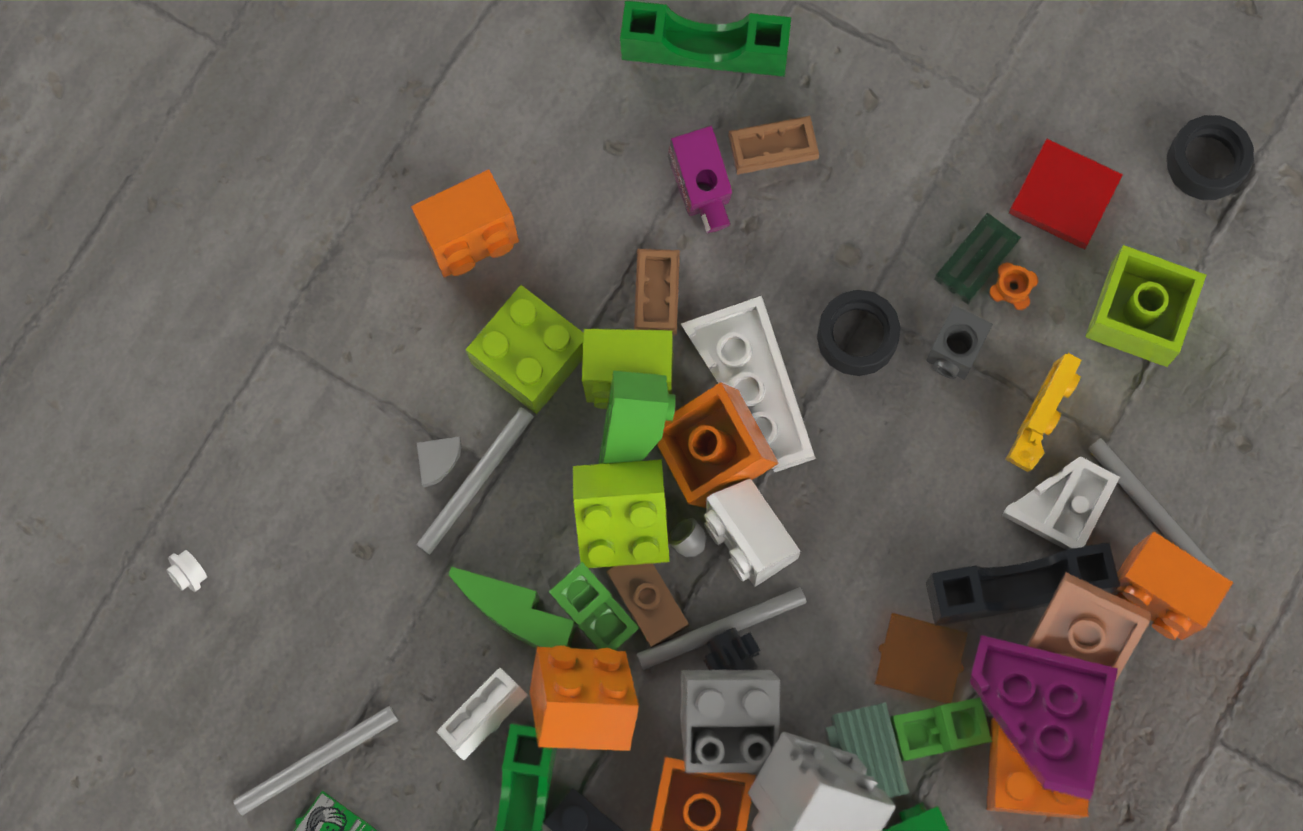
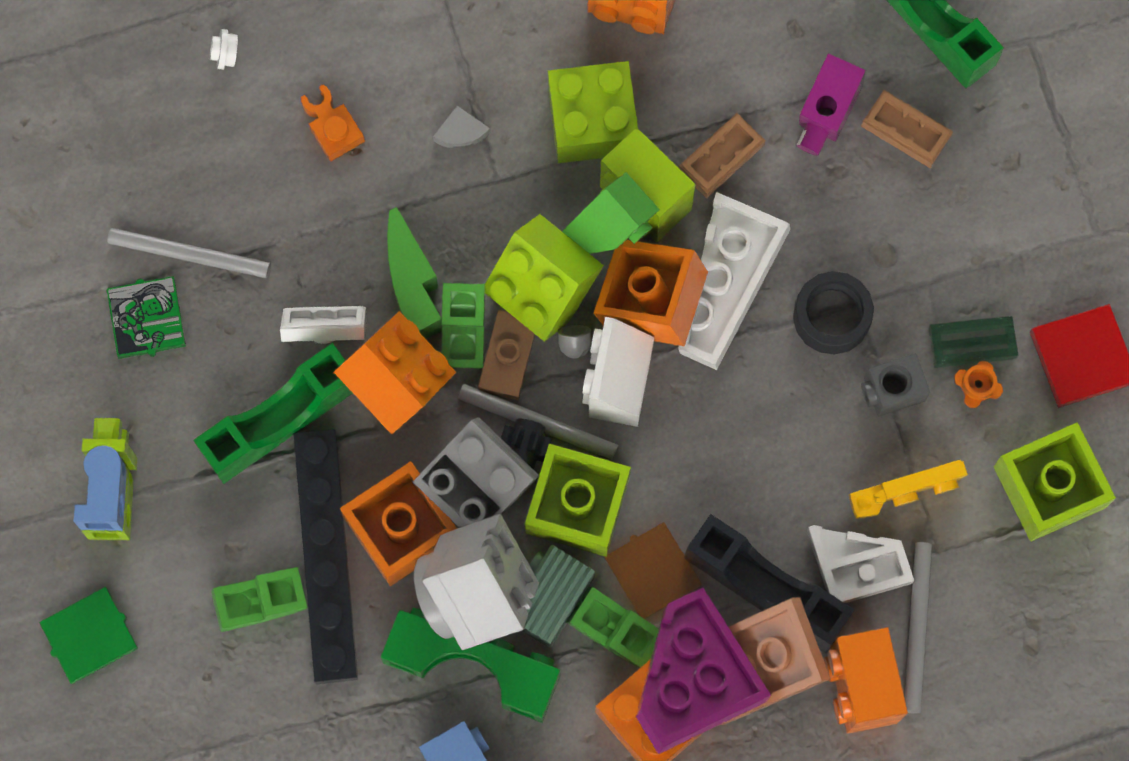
camera: 40 degrees right, 0 degrees up
(336, 552) = (333, 127): none -> orange plate
(474, 481) = (471, 168): light grey bar -> none
(818, 659) = (577, 500): none -> lime brick

